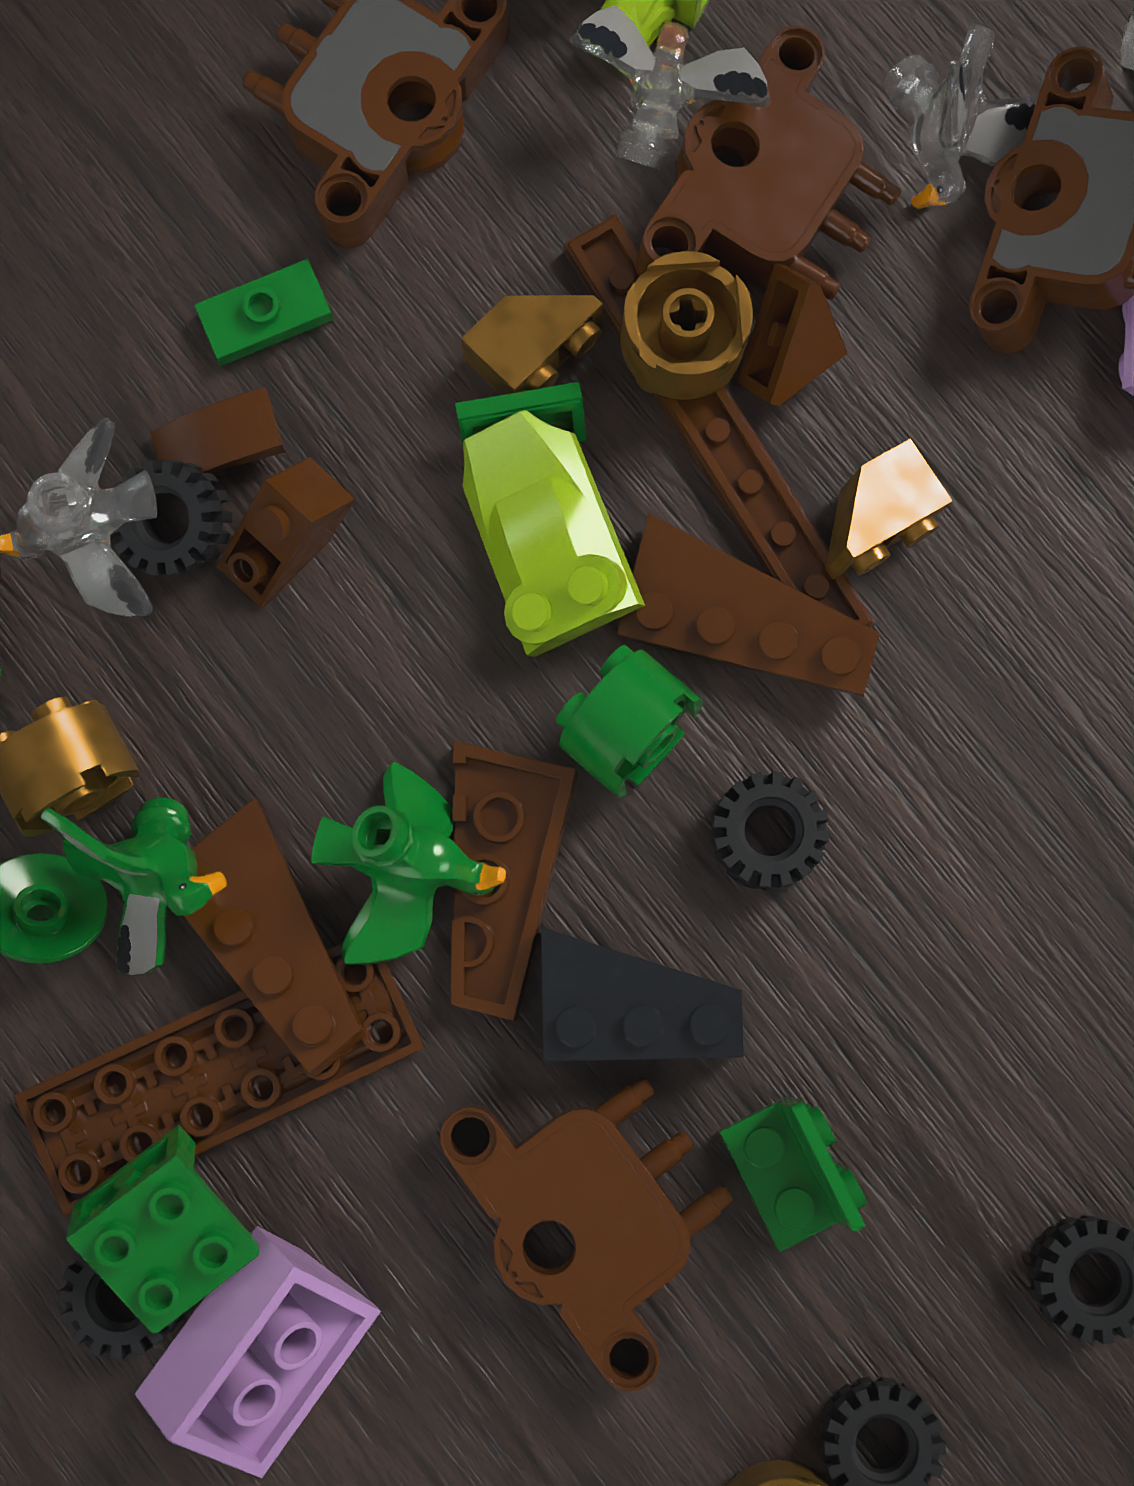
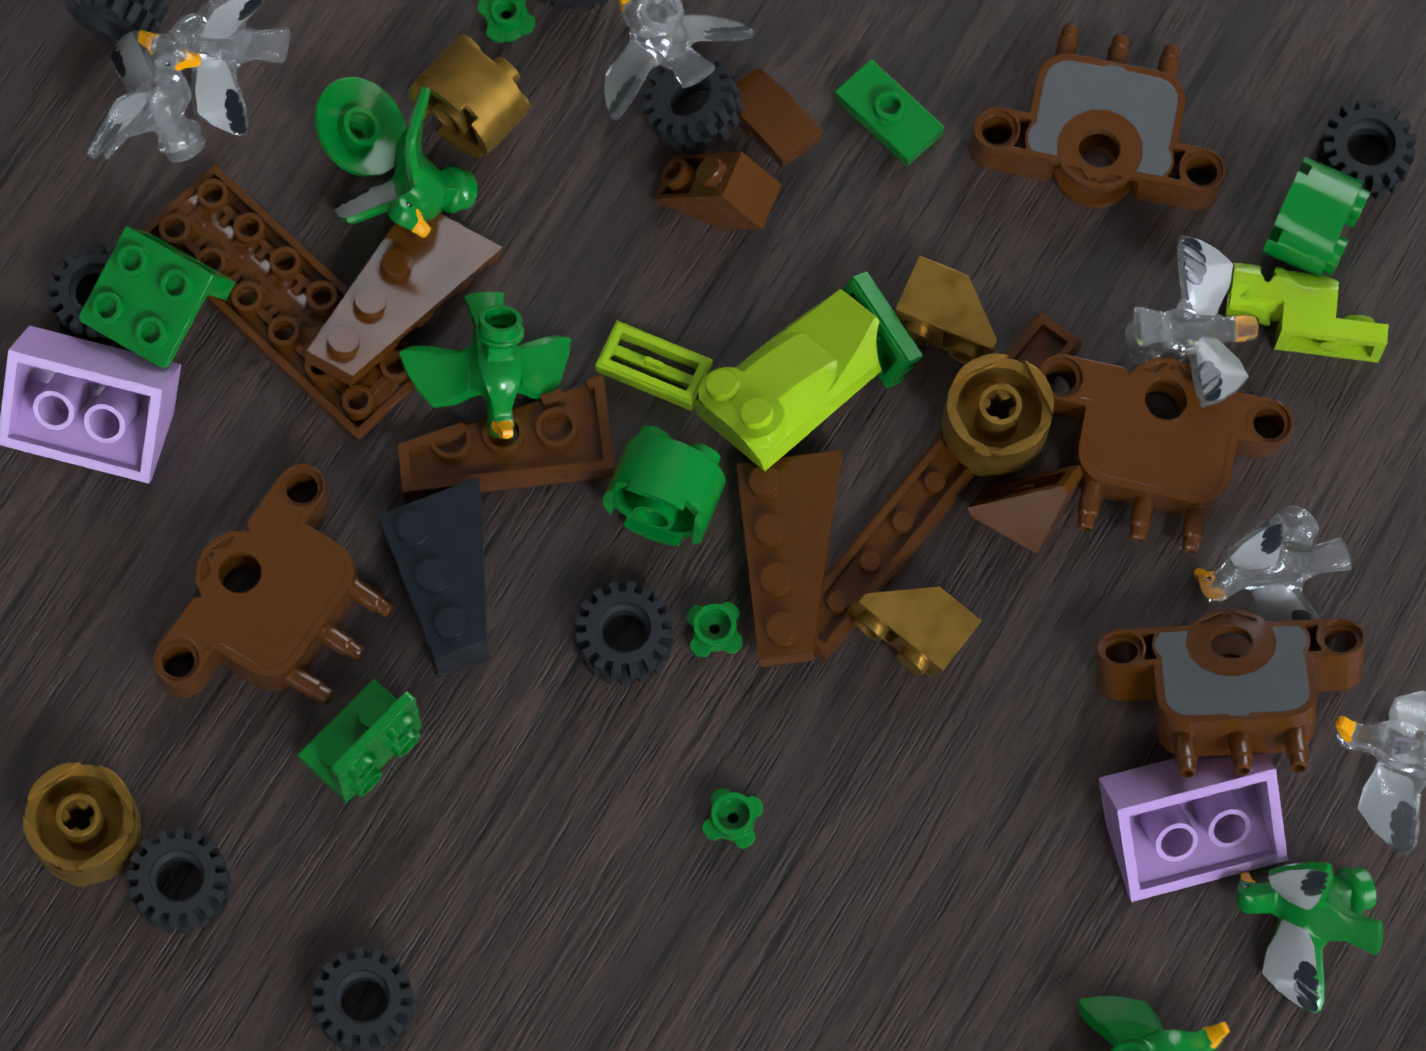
camera: 70 degrees right, 10 degrees down
(425, 718) = (645, 382): none -> lime tile
(811, 719) = (724, 617): none -> green plate
(1036, 786) = (729, 803): none -> green plate

